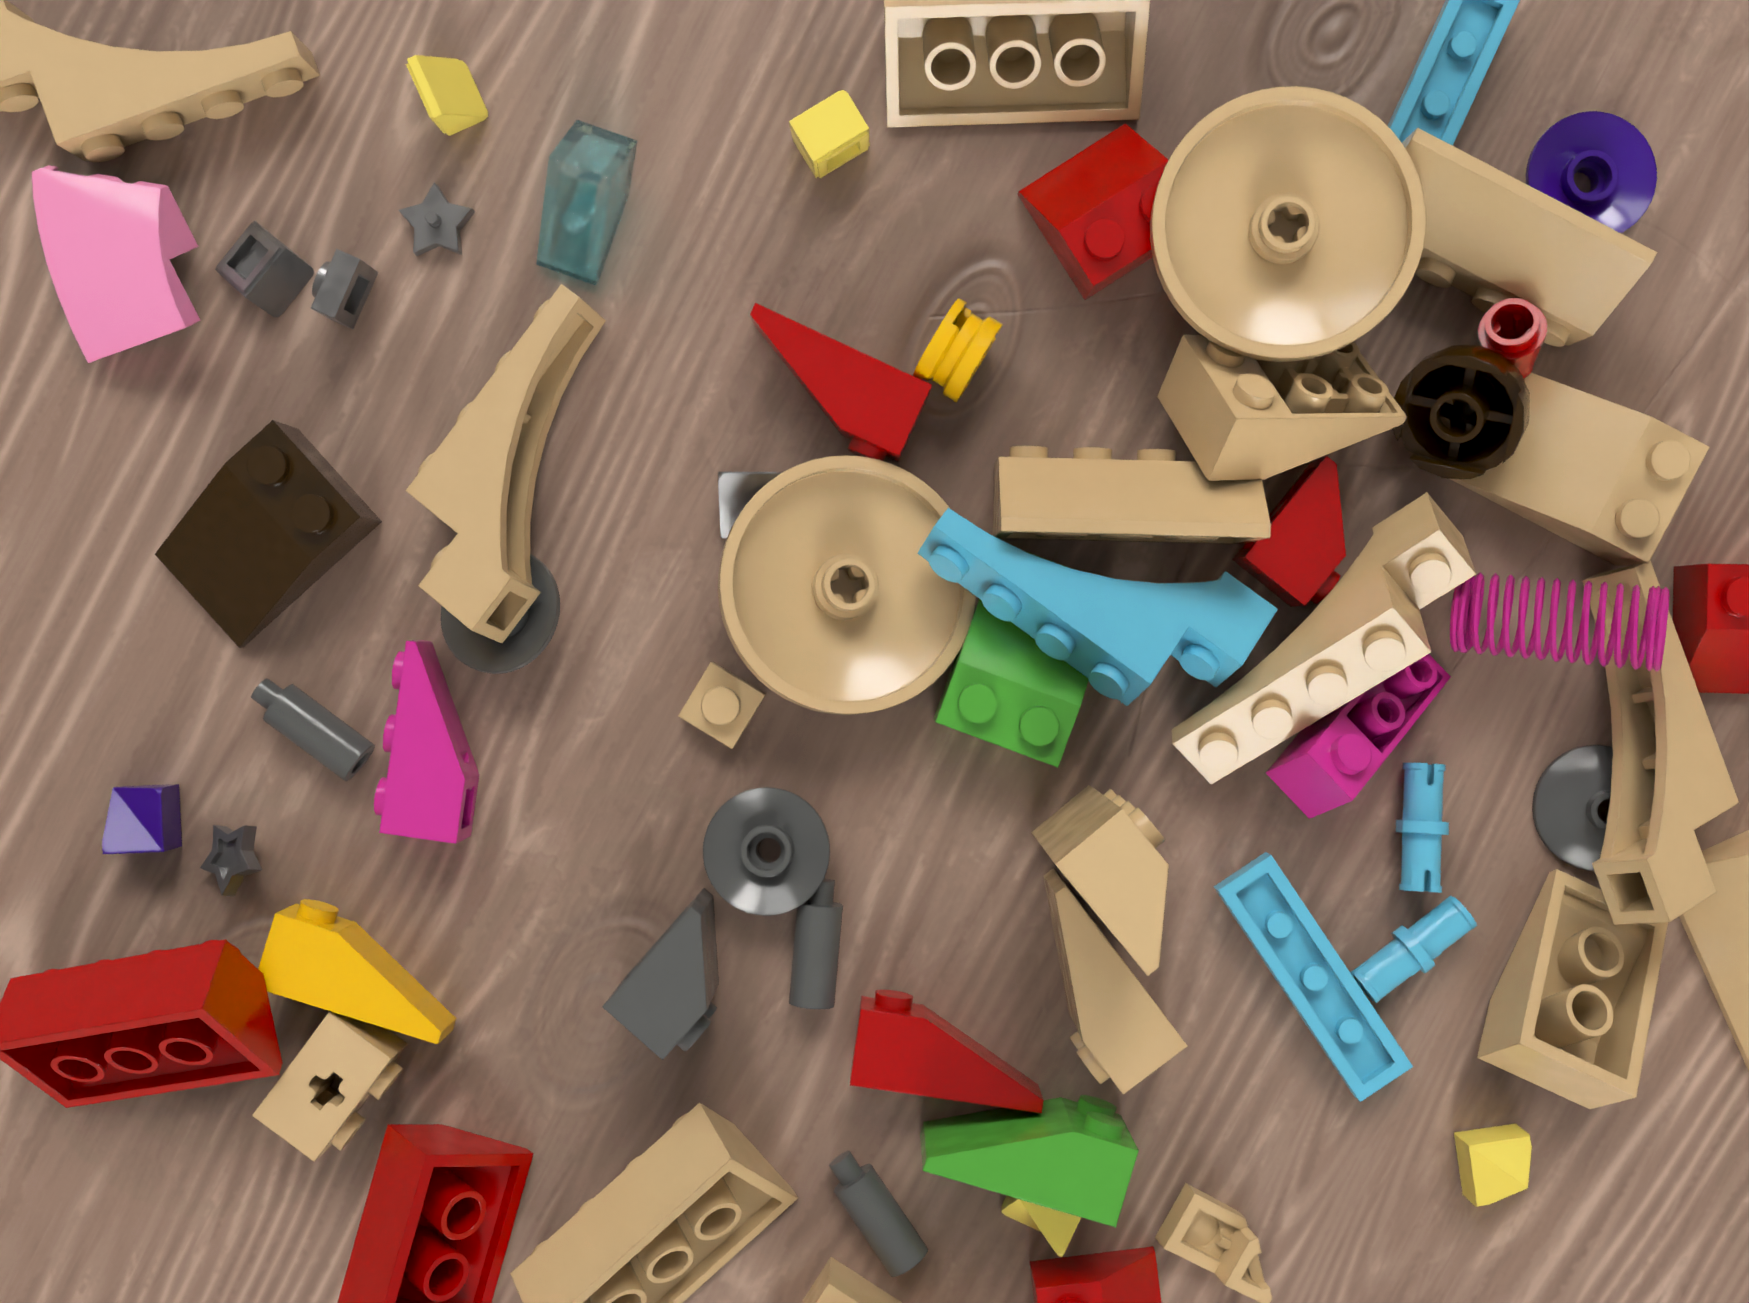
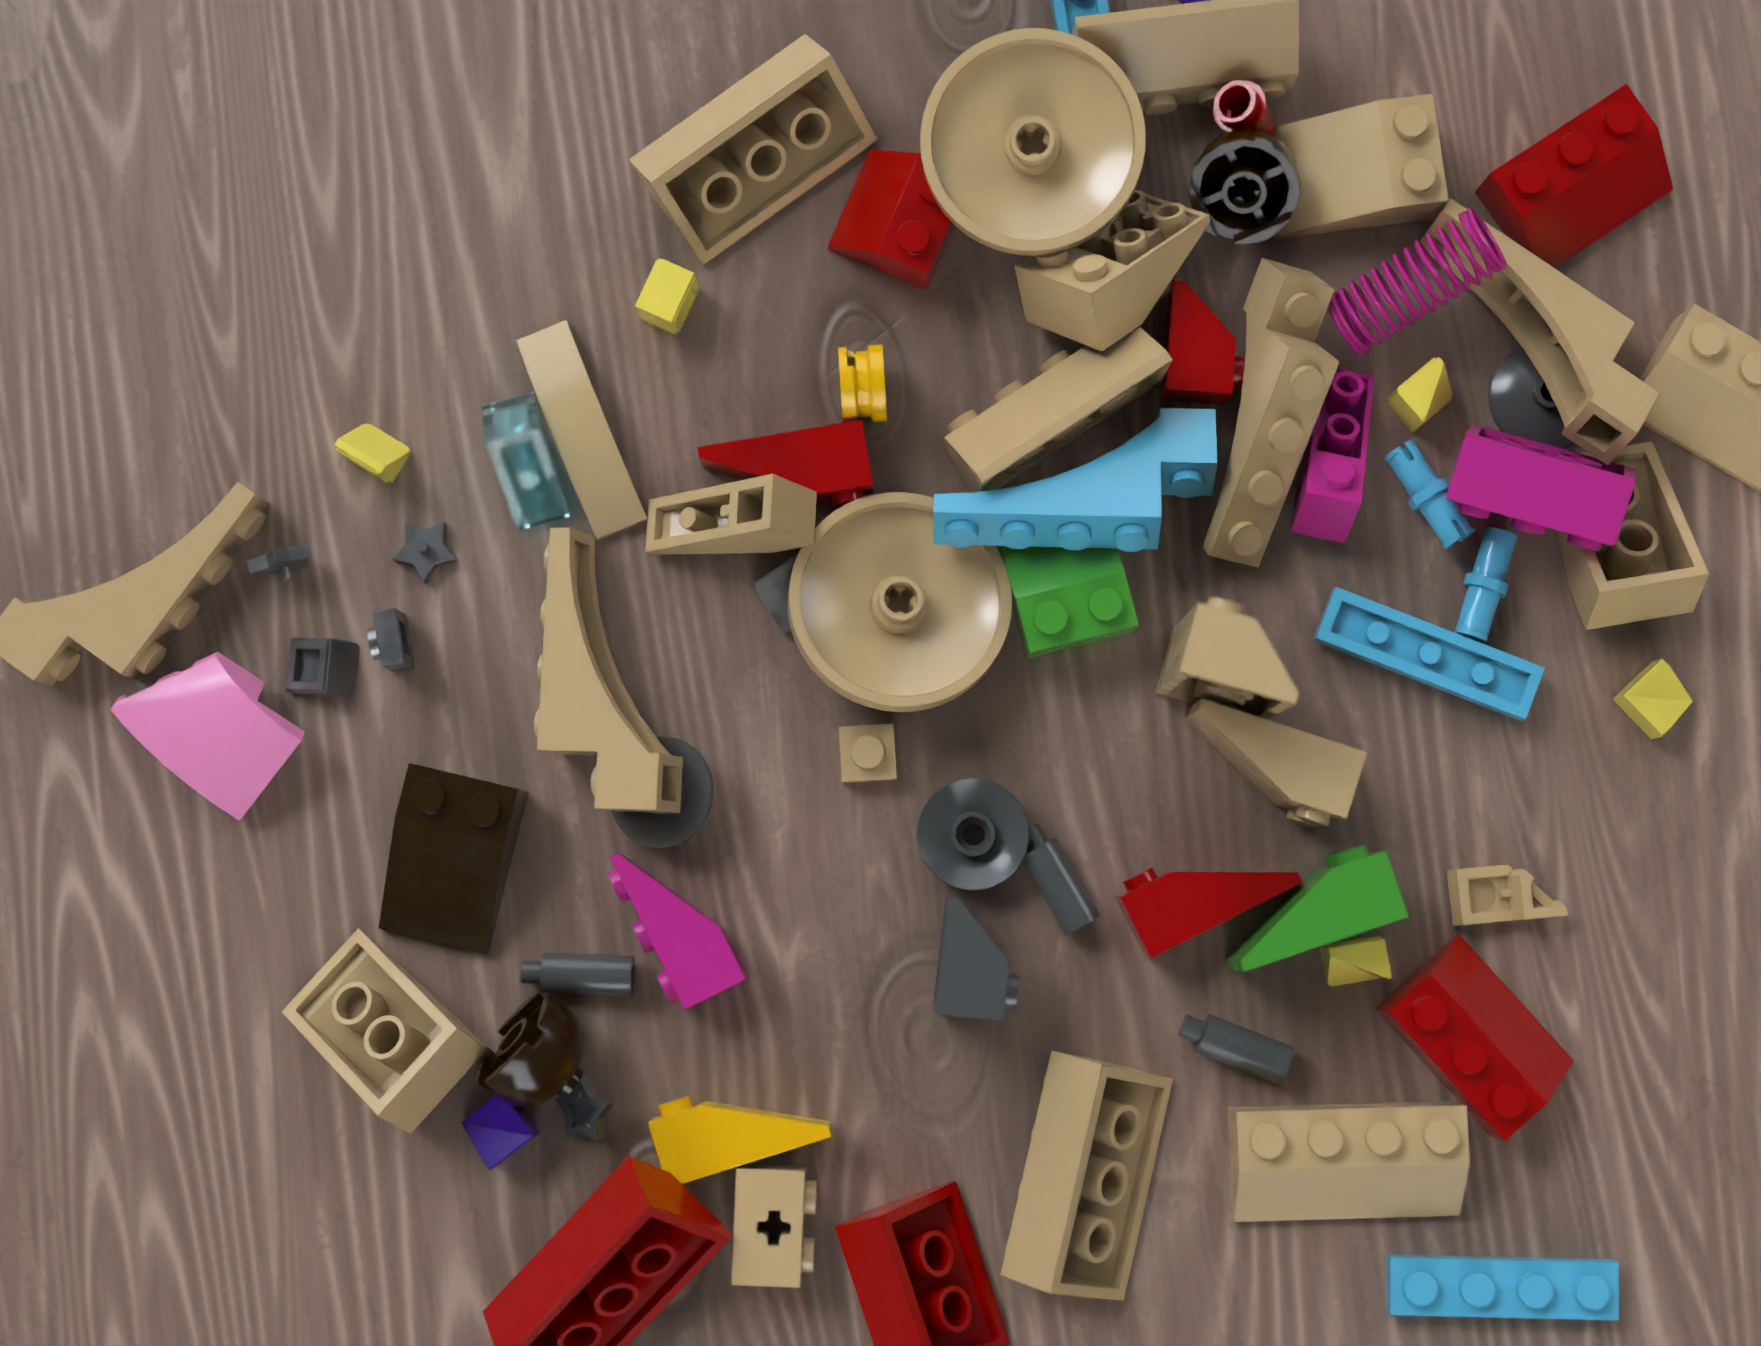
camera: 30 degrees left, 5 degrees down
(90, 657) = (383, 1032): none -> tan slope
(214, 778) = (536, 1055): none -> dark brown cylinder
(287, 139) = (281, 561): none -> flat silver piece
(659, 207) = (581, 430): none -> tan slope
(744, 396) = (733, 518): none -> tan slope
(1483, 727) = (1421, 394): none -> light yellow slope
(1537, 903) = (1541, 487): none -> dark pink slope

